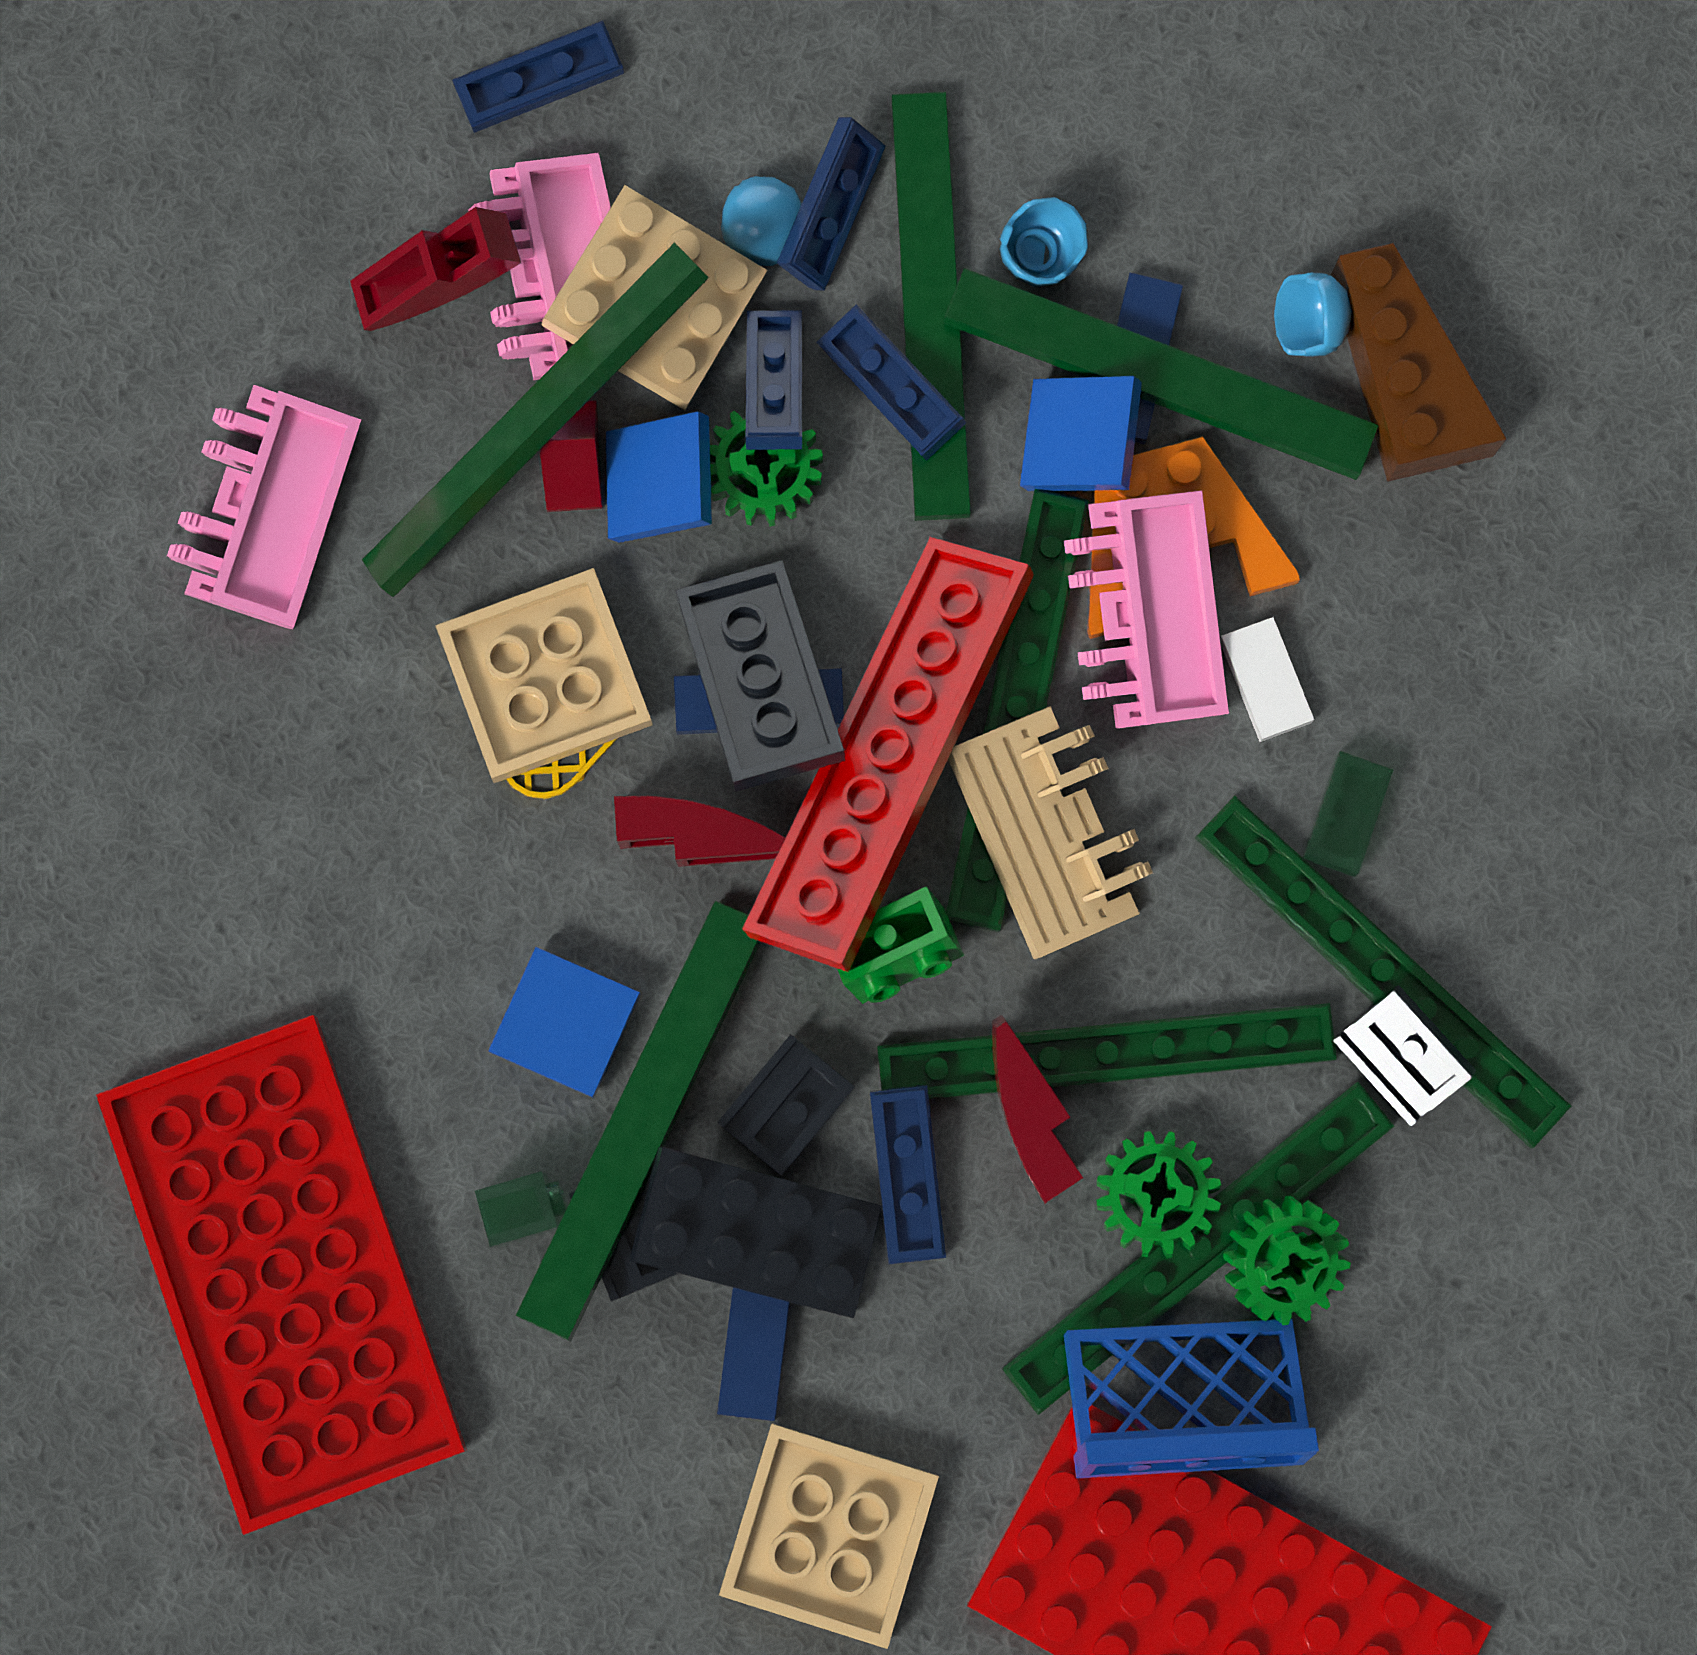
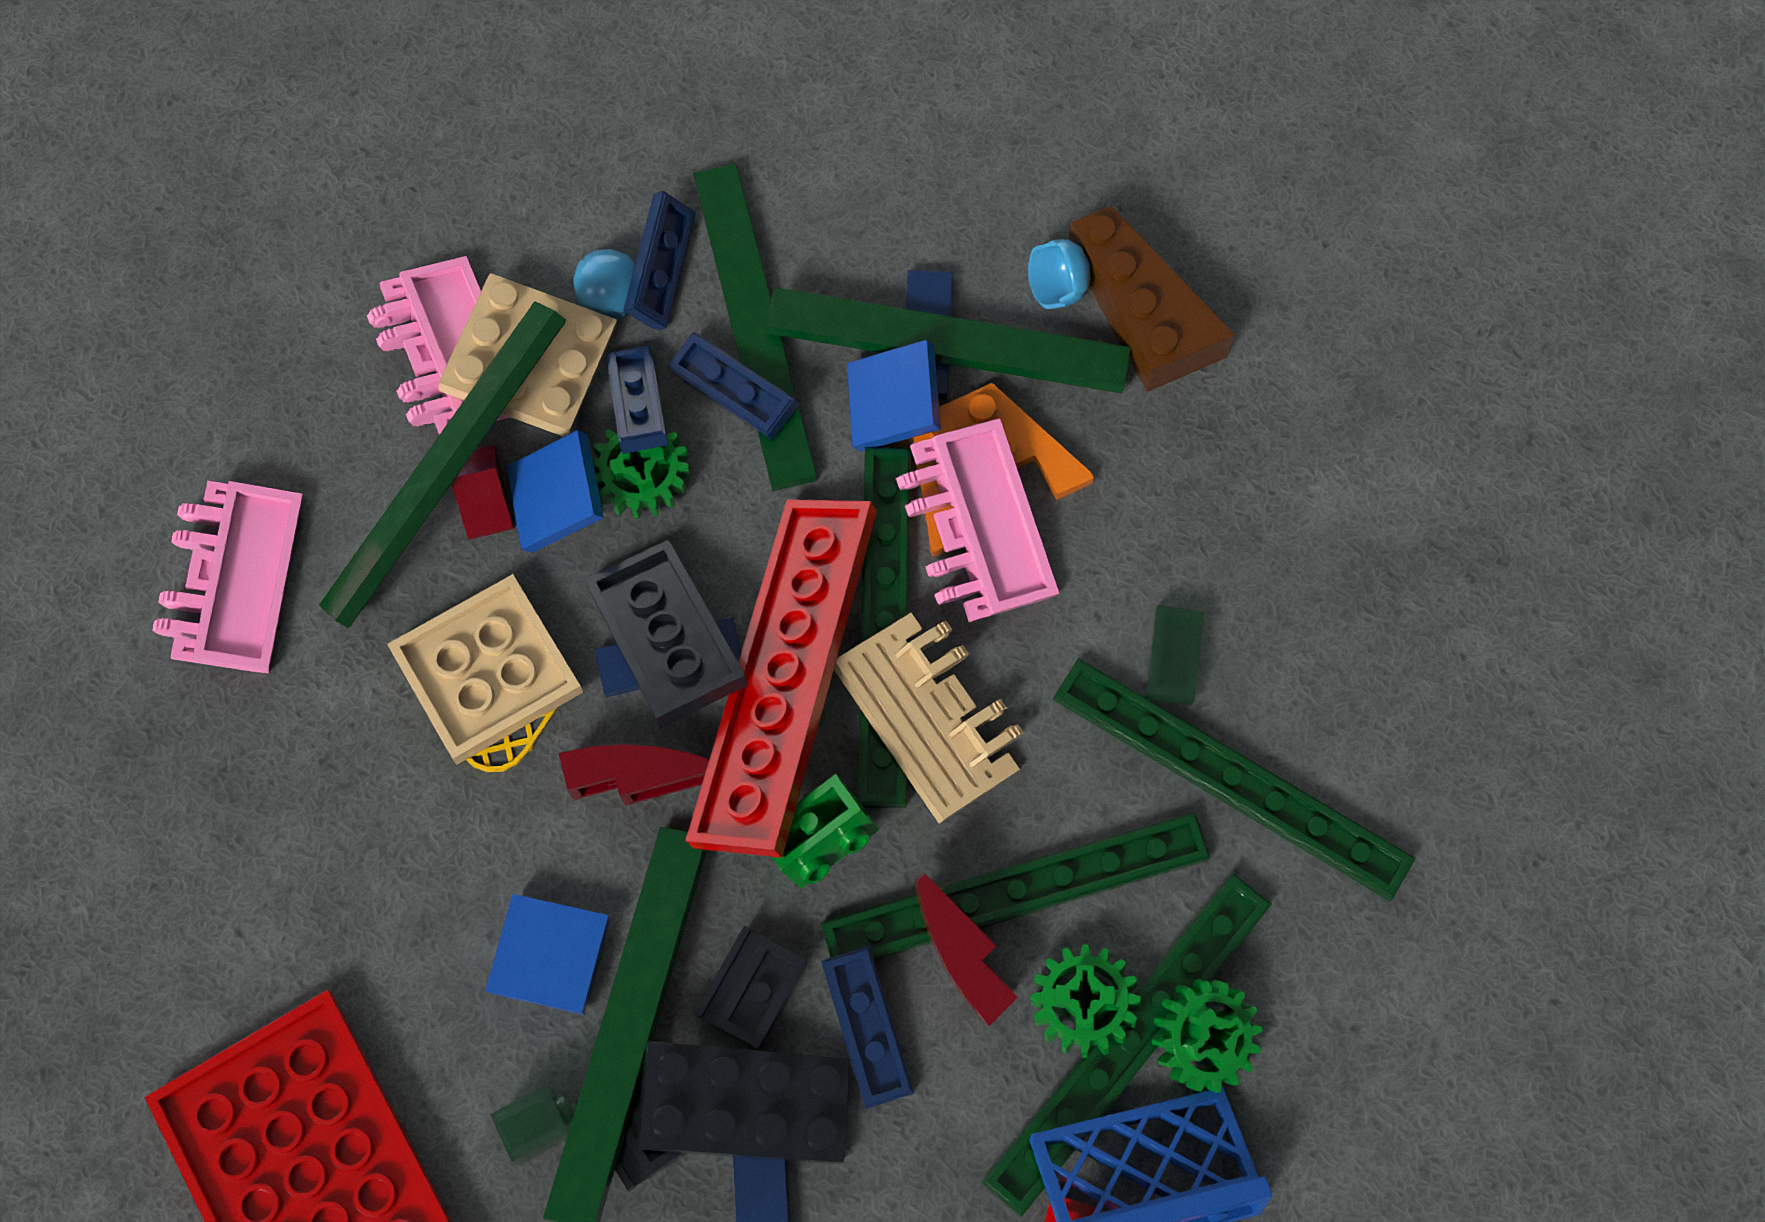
camera: 10 degrees left, 10 degrees down
(435, 268) = (346, 364): dark red slope -> none
(538, 76) = (409, 210): dark blue tile -> none
(1041, 224) = (833, 245): dark azure hair -> none
(1266, 679) = (1084, 561): white tile -> none
(1404, 1055) = (1267, 842): plate -> none

